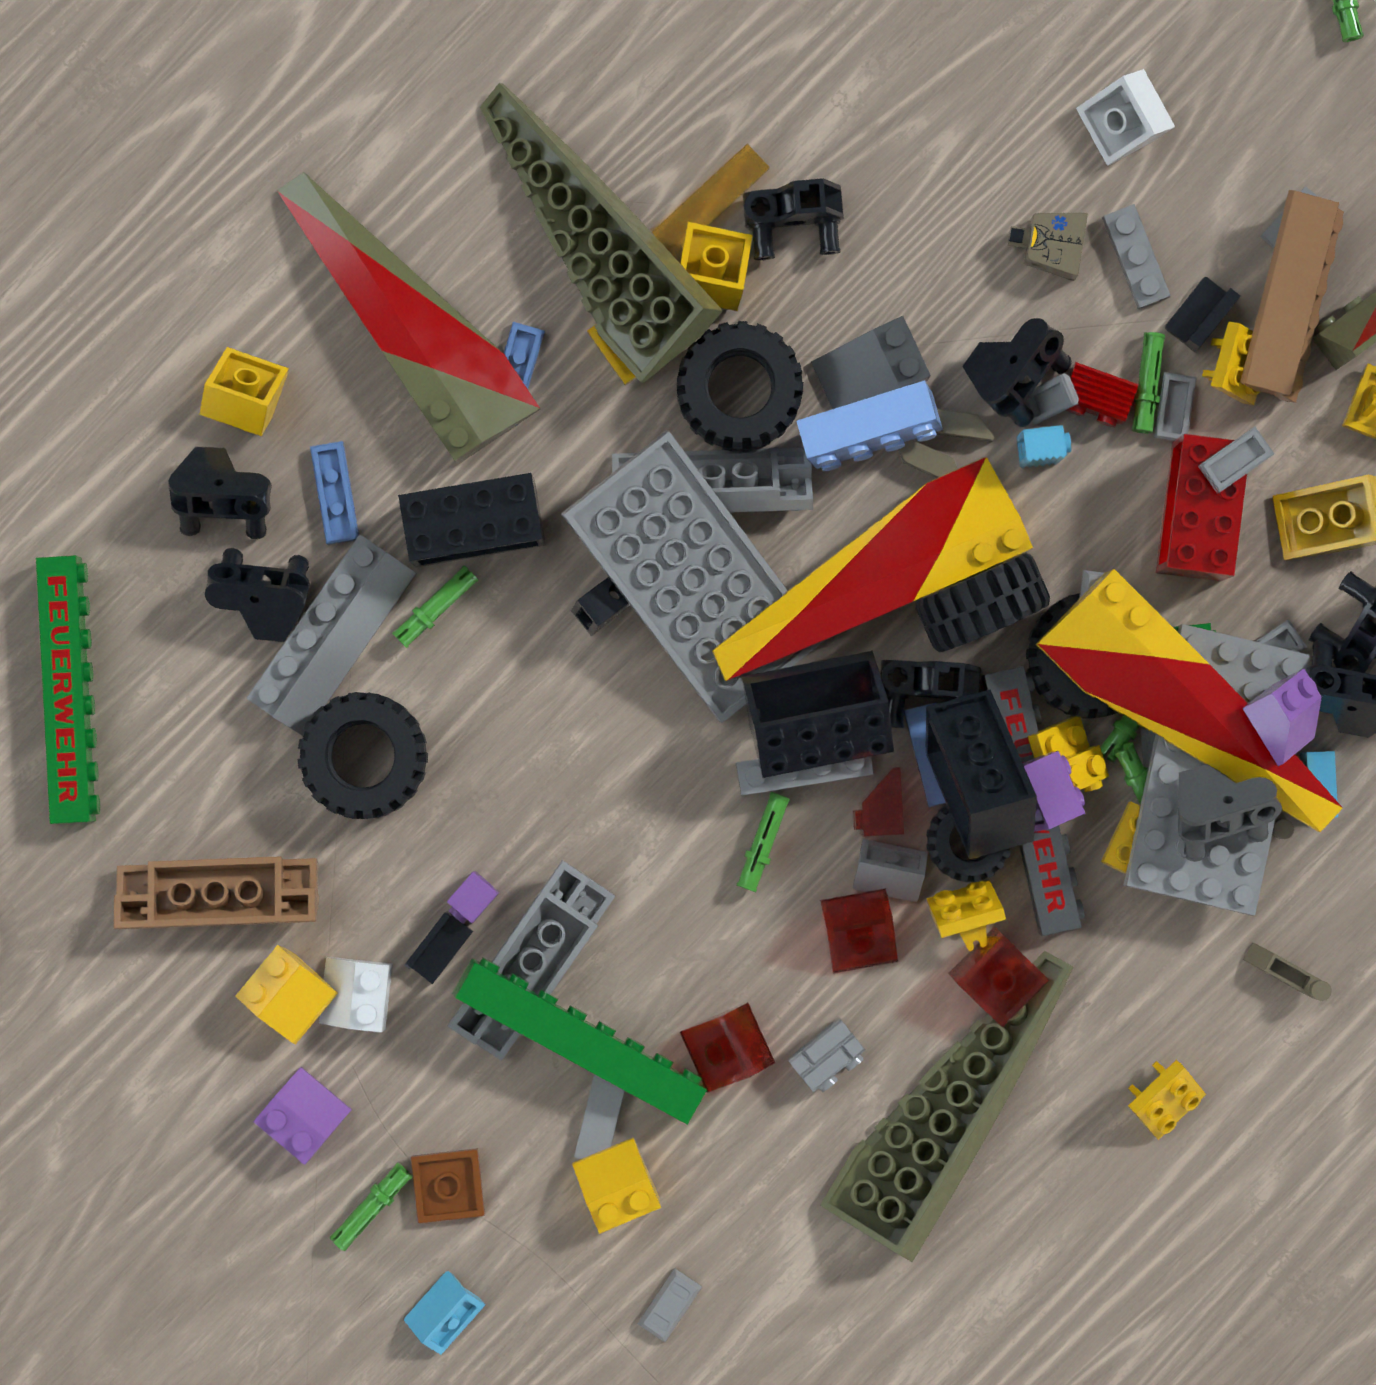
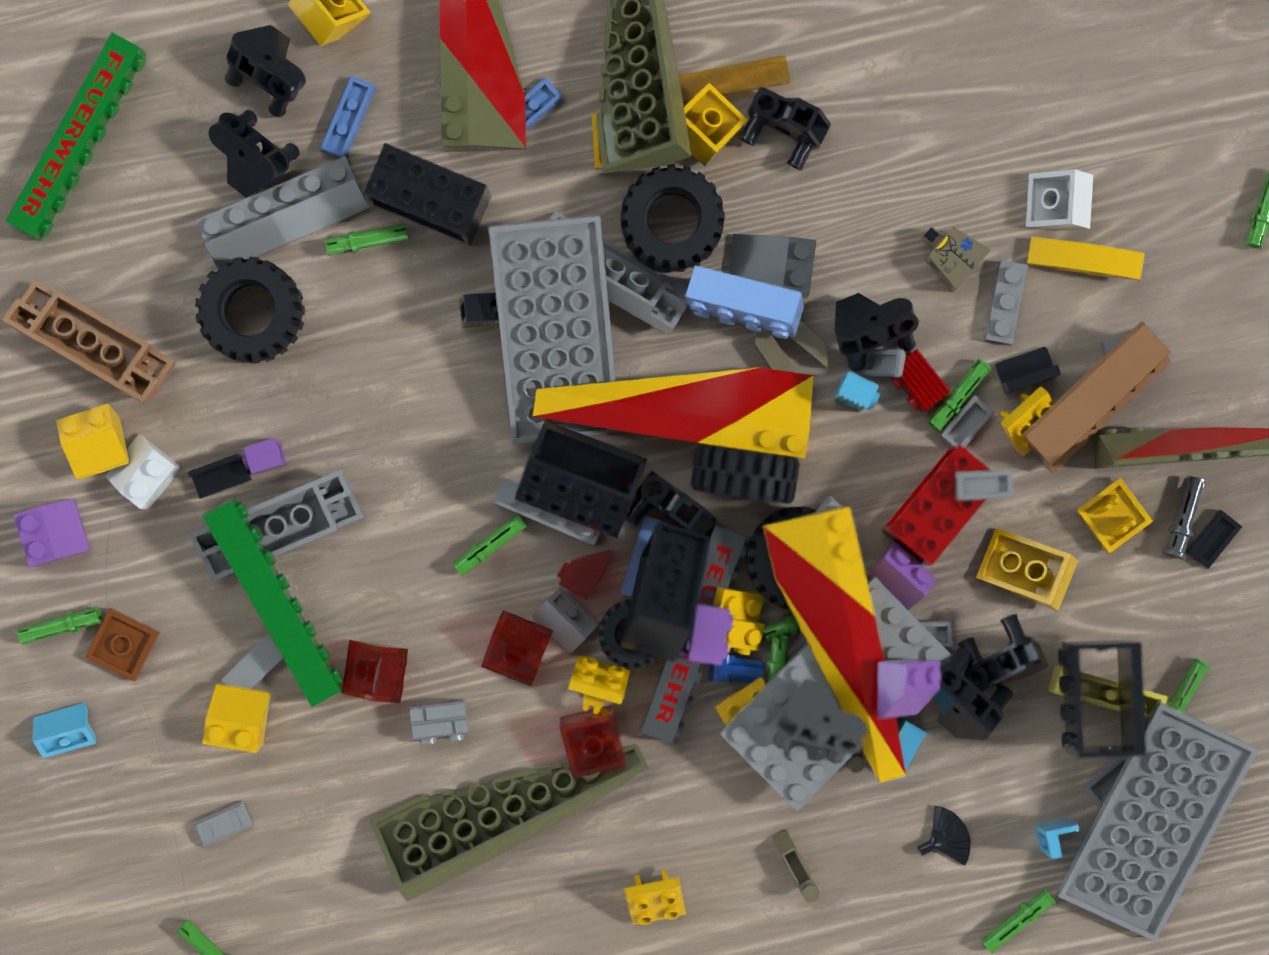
camera: 35 degrees right, 0 degrees up
(1100, 810) = (736, 670): none -> blue piece
(1190, 159) = (1086, 258): none -> yellow slope
(1208, 604) = (902, 575): none -> medium lavender slope

